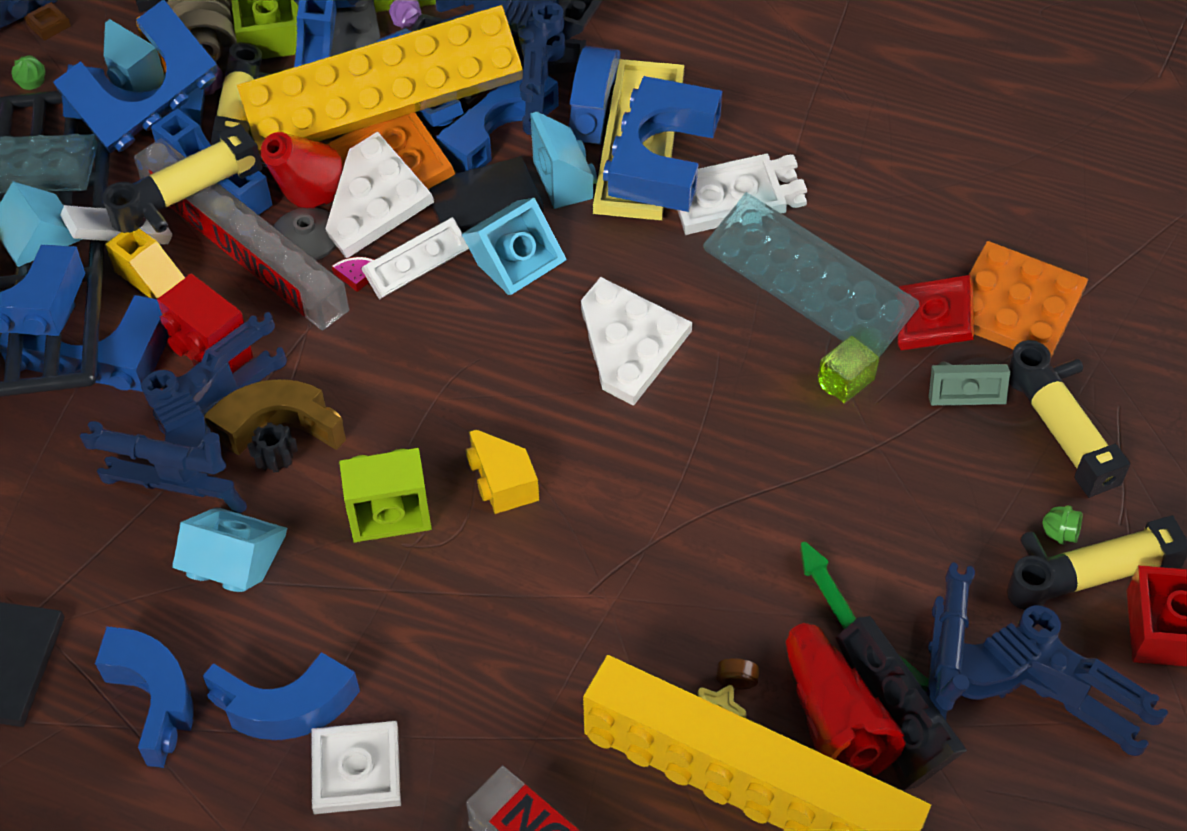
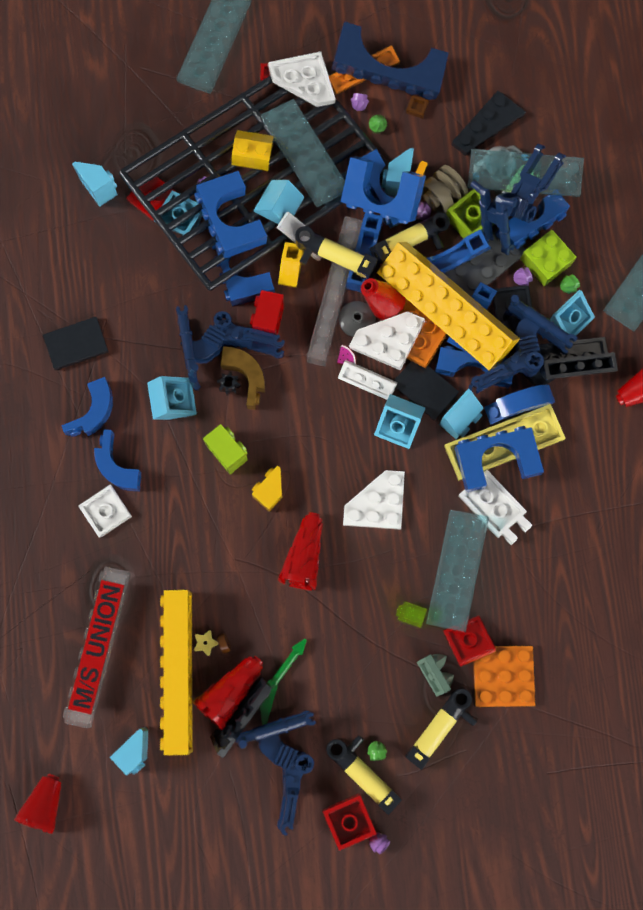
camera: 60 degrees right, 25 degrees up
(663, 474) = (303, 556): none -> red cone

